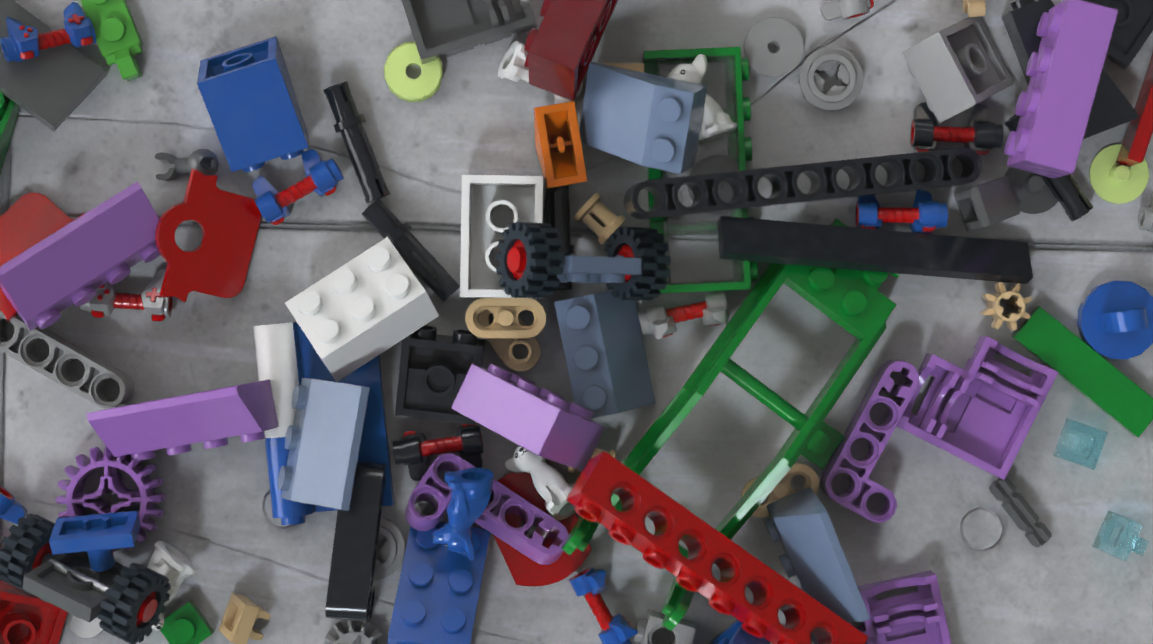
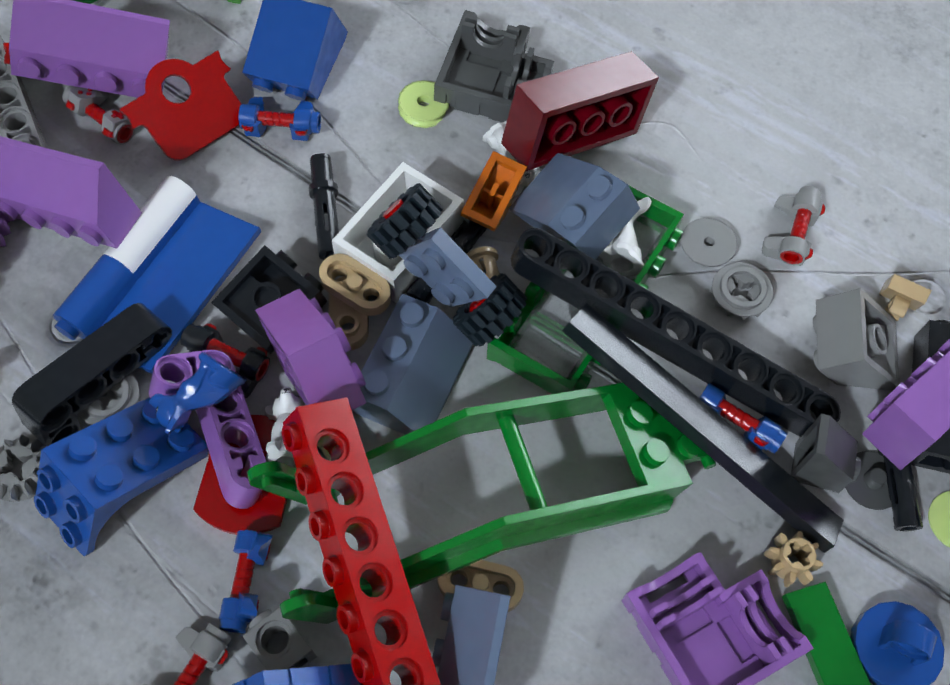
camera: 35 degrees right, 25 degrees down
(198, 160) = (229, 59): dark grey arm -> none
(323, 443) = (136, 270): slope -> none
(360, 151) = (350, 104): black pin -> none
(362, 309) = (249, 206): white brick -> none
(662, 321) = (478, 376): light grey piece -> none
(822, 445) = (542, 566): green plate -> none
(877, 436) = (601, 594): medium lavender beam -> none
(978, 135) = (851, 400): black piece -> none

